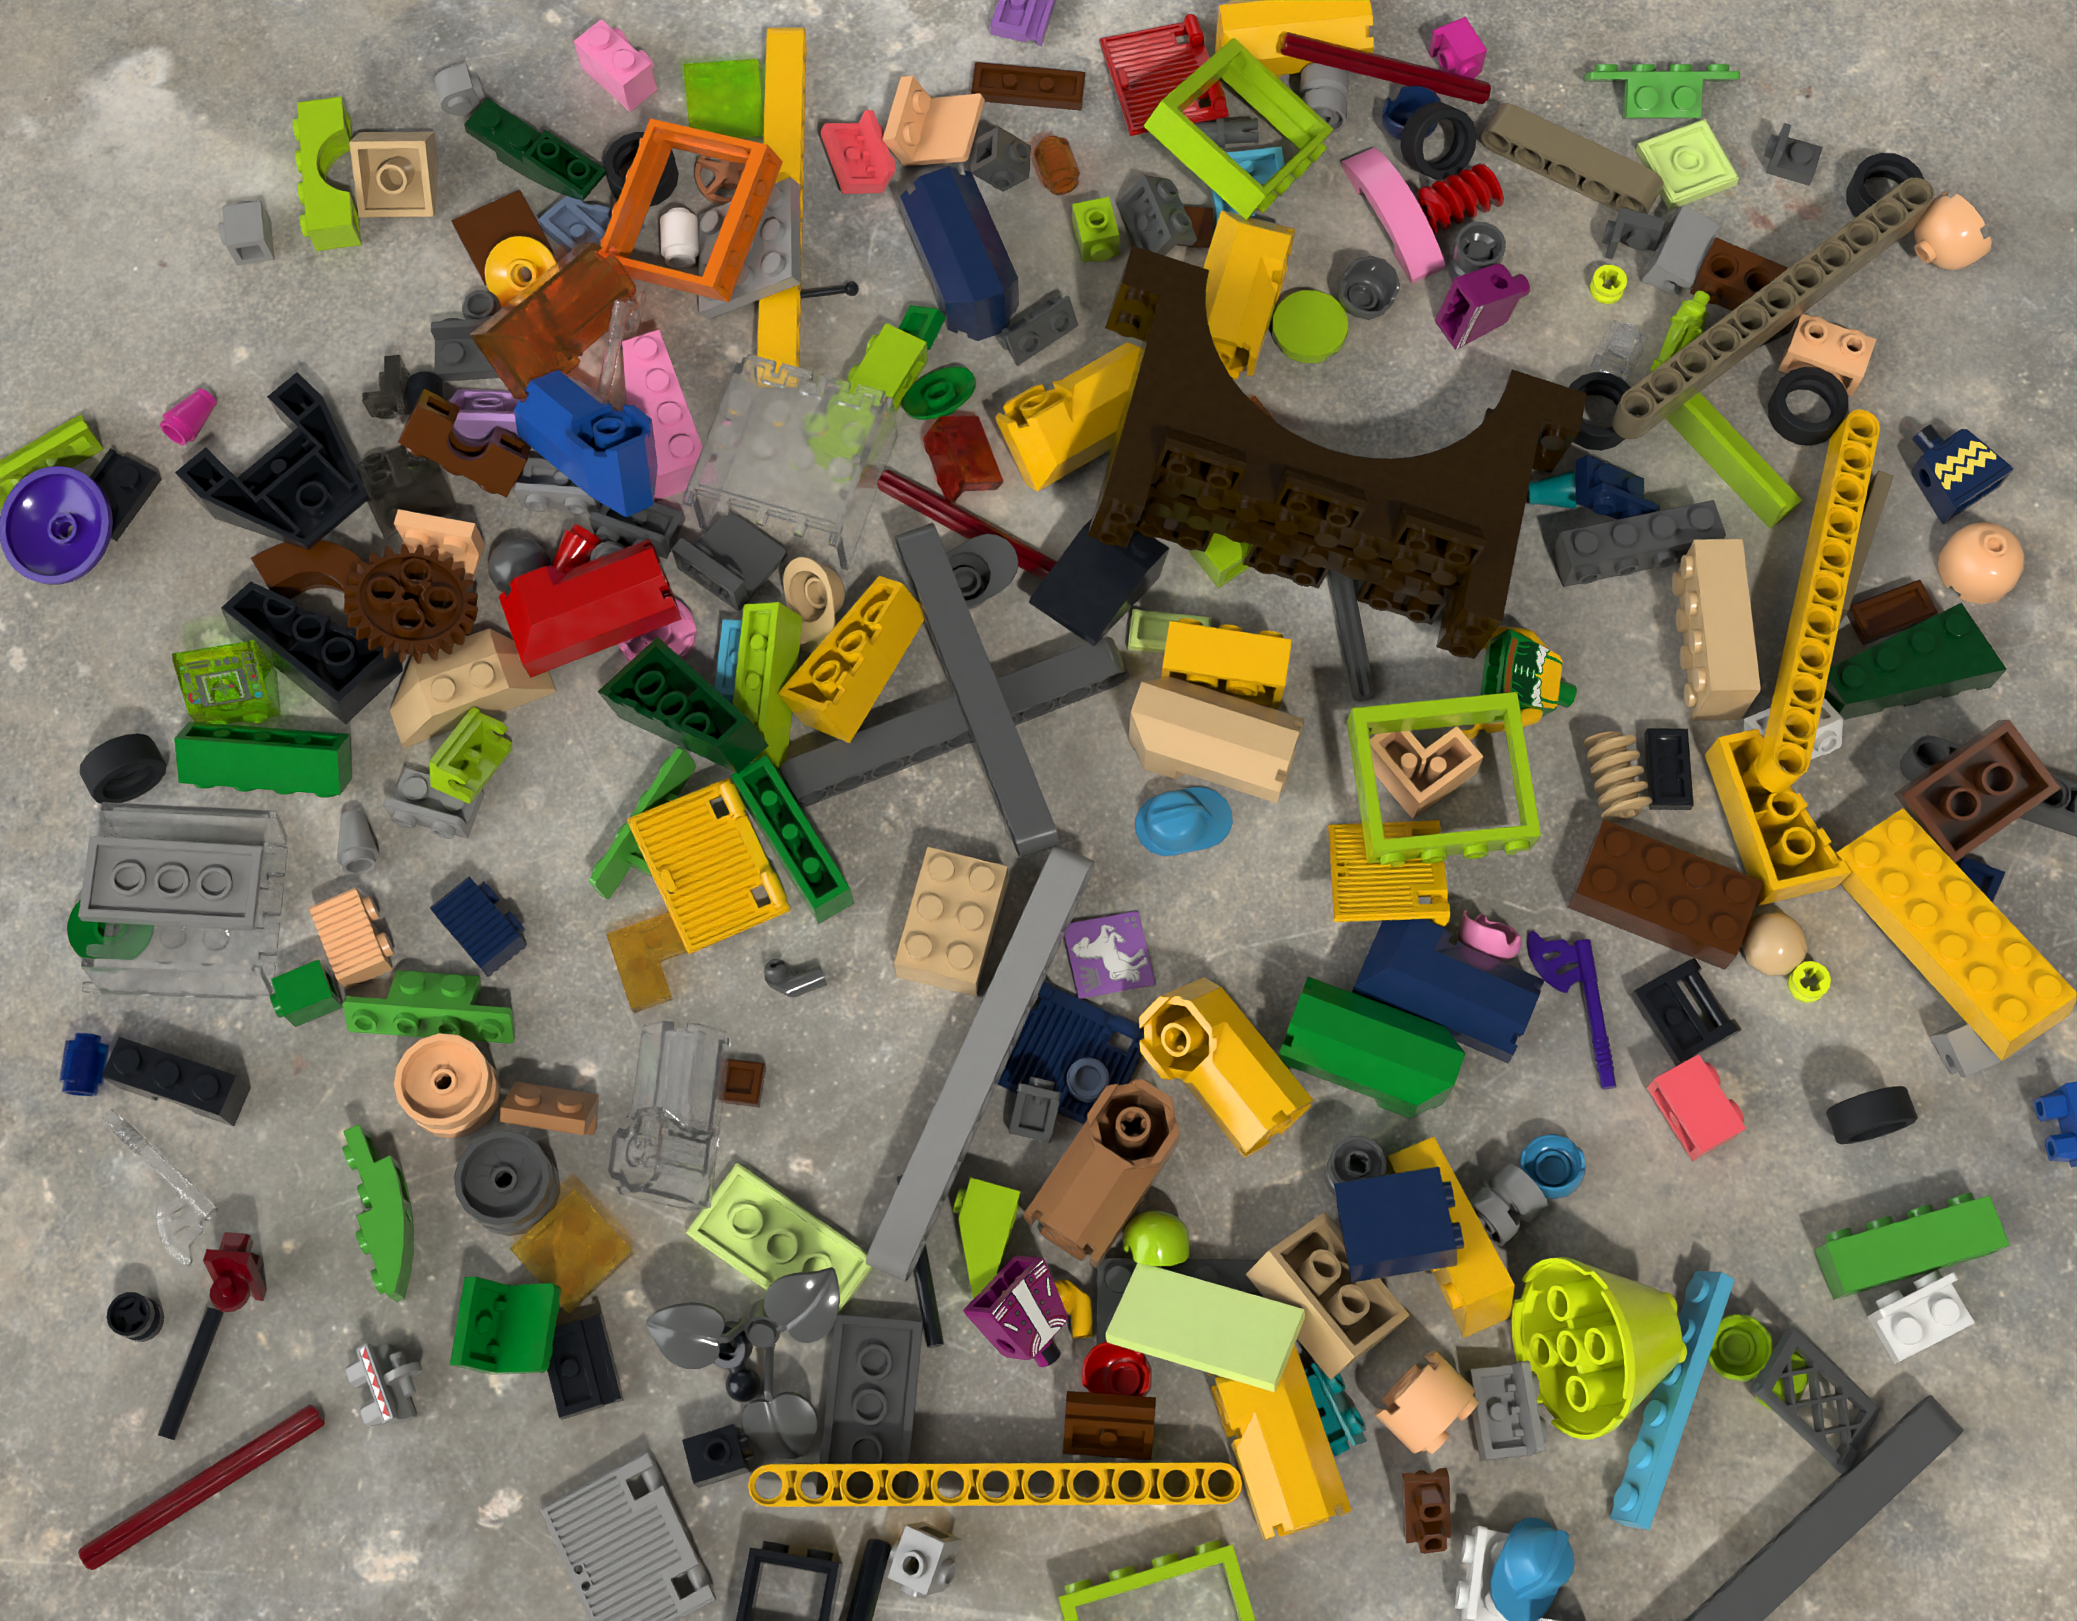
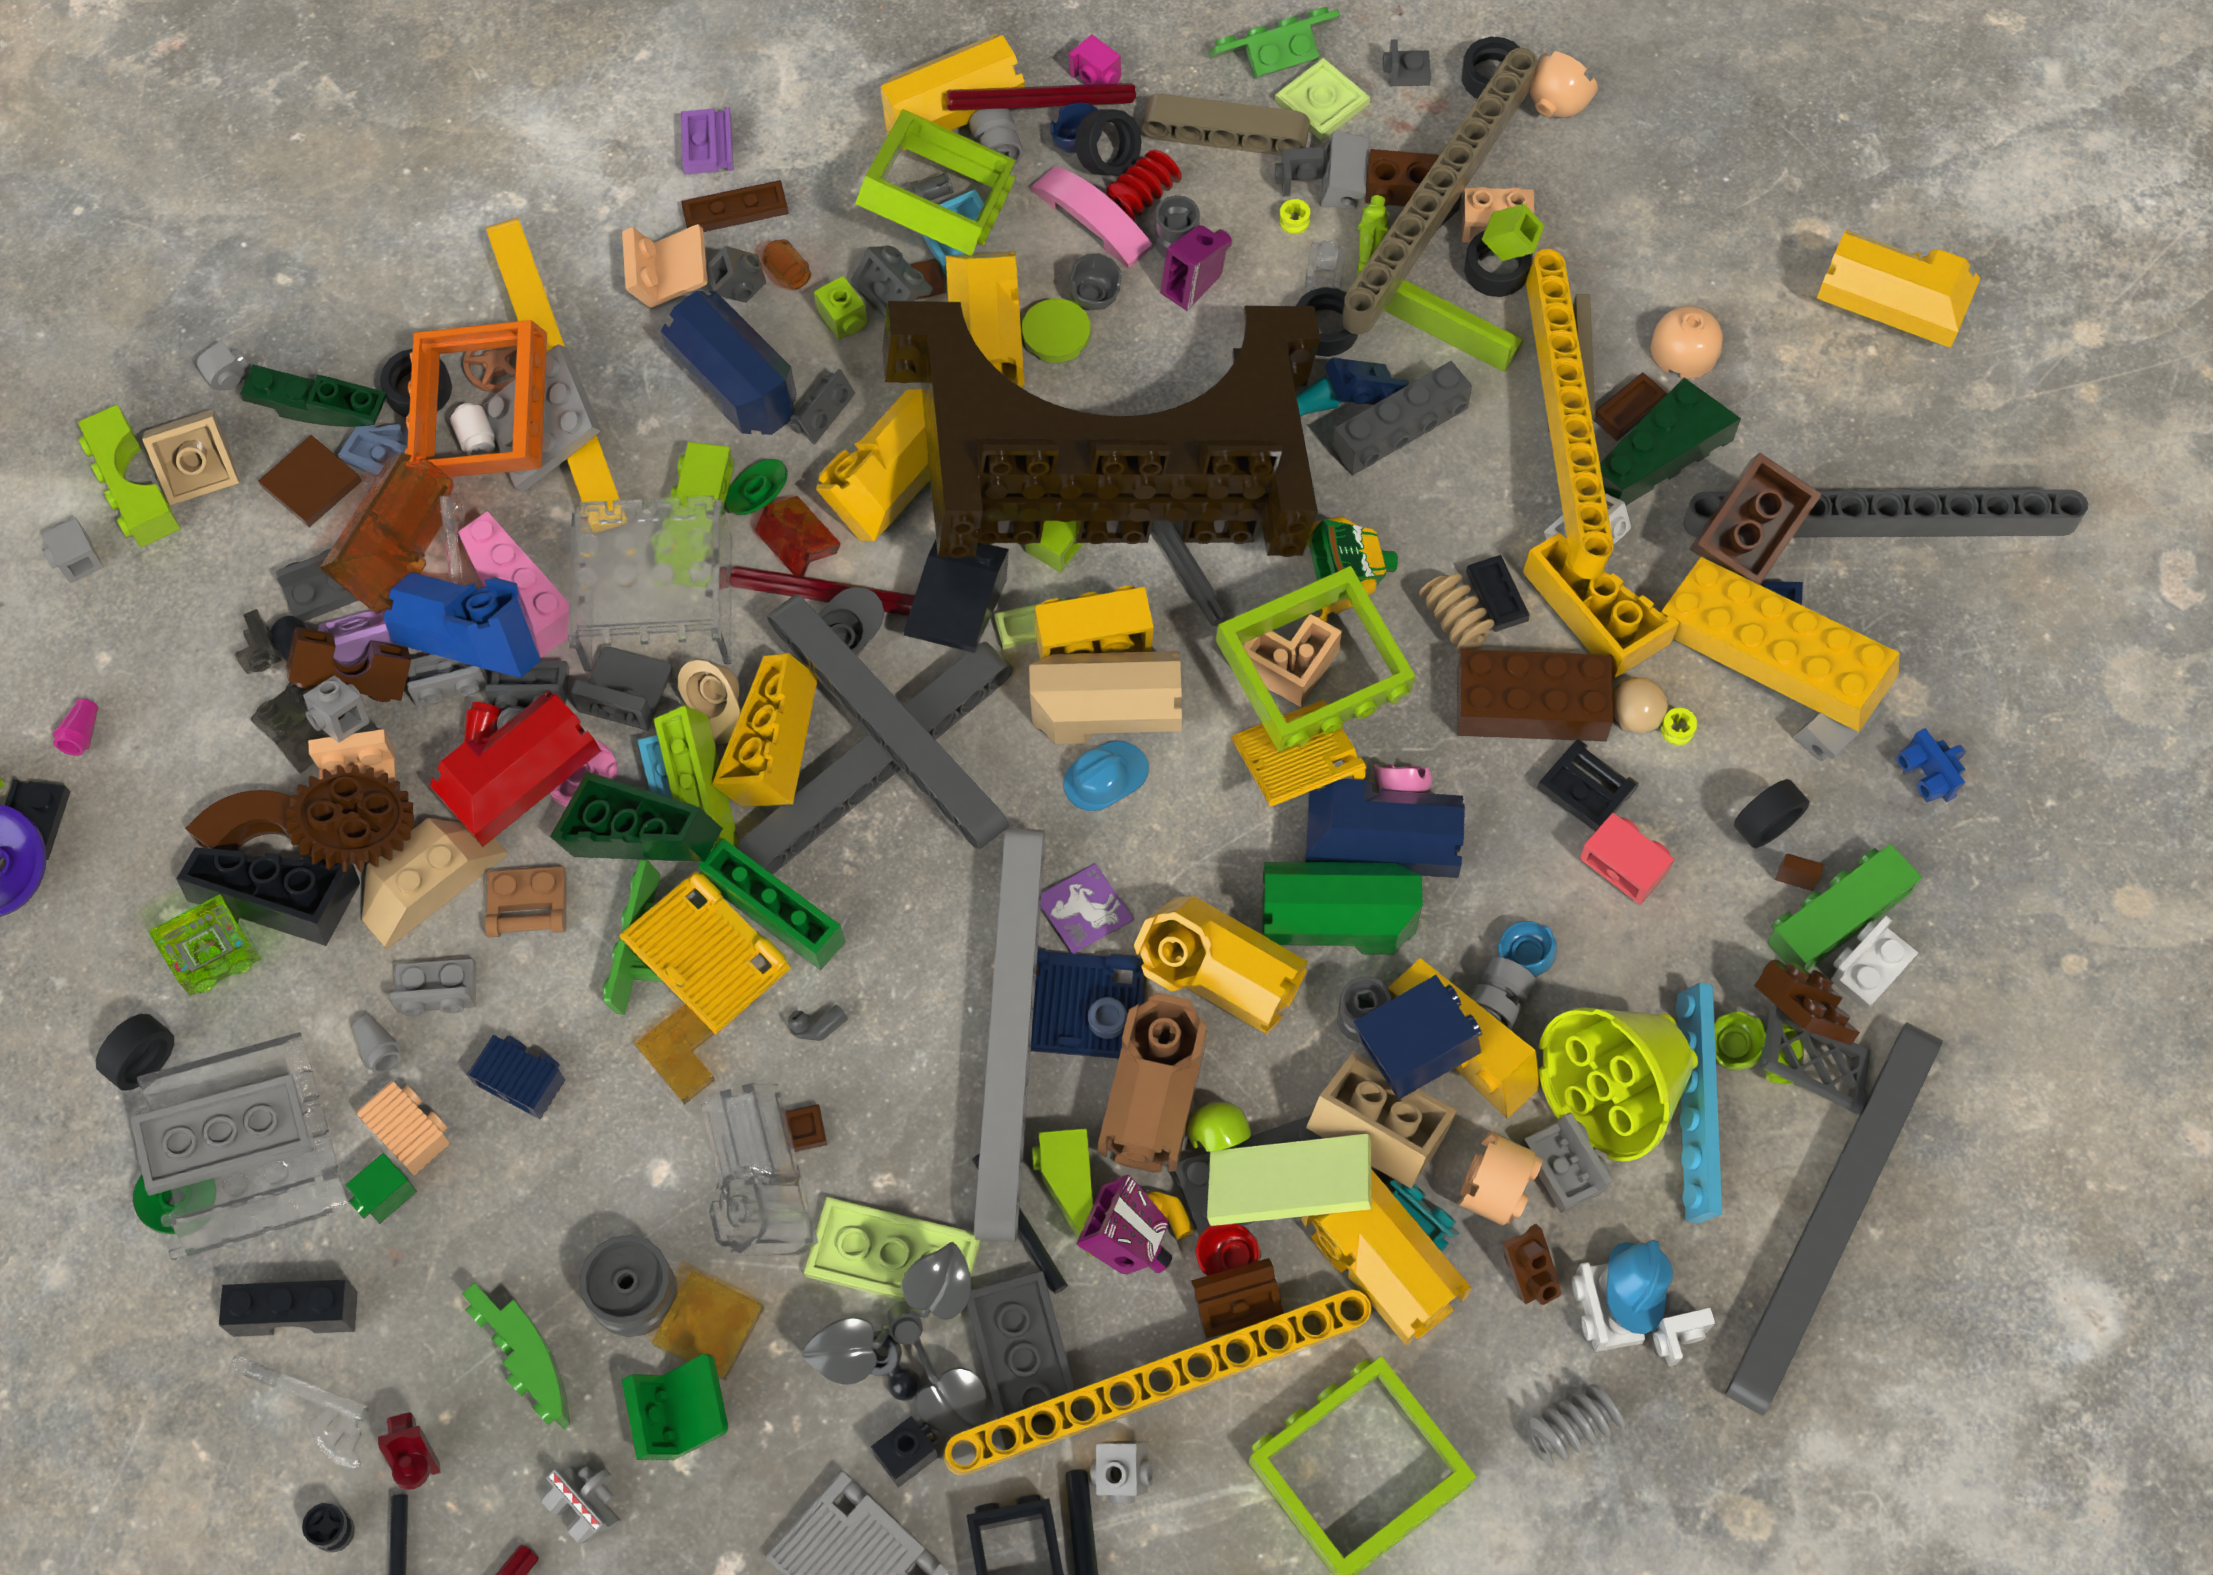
camera: 20 degrees left, 5 degrees down
(83, 1065) = (194, 1325): clear blue brick -> none
(263, 759) = (263, 999): green brick -> none
(296, 487) = (203, 756): black wedge -> none
(426, 1092) = (519, 1218): light nougat wheel -> none
(430, 1005) = (499, 1163): bright green bracket -> none
(432, 479) = (336, 708): none -> light grey brick
(469, 756) = (453, 933): lime hinge -> none
(480, 304) = (312, 544): dark grey plate -> none
(506, 264) = (324, 499): yellow dish -> none
(514, 559) = (426, 752): dark grey hair -> none
(551, 1108) = (644, 1209): medium nougat bracket -> none
(559, 737) = (526, 891): none -> medium nougat plate
(583, 1368) = (757, 1422): black plate -> none
(616, 64) = (359, 301): bright pink brick -> none
(725, 97) = (469, 295): clear neon green bracket -> none
(850, 288) = (642, 426): black hinge -> none
(859, 155) = (608, 309): coral bracket -> none
(923, 323) = (719, 432): green plate -> none
(951, 921) = (938, 926): tan brick -> none
(1035, 1110) = (1072, 1057): dark grey bracket -> none
(1152, 64) = (838, 160): red window -> none
(1586, 973) = (1492, 783): dark purple piece -> none
(1716, 630) = (1494, 465): tan brick -> none
(1829, 1335) = (1807, 1000): none -> reddish brown plate
(1834, 381) = (1513, 232): none -> lime brick
(1878, 1188) = (1799, 872): none -> reddish brown tile
(1956, 471) = (1638, 275): dark blue torso -> none

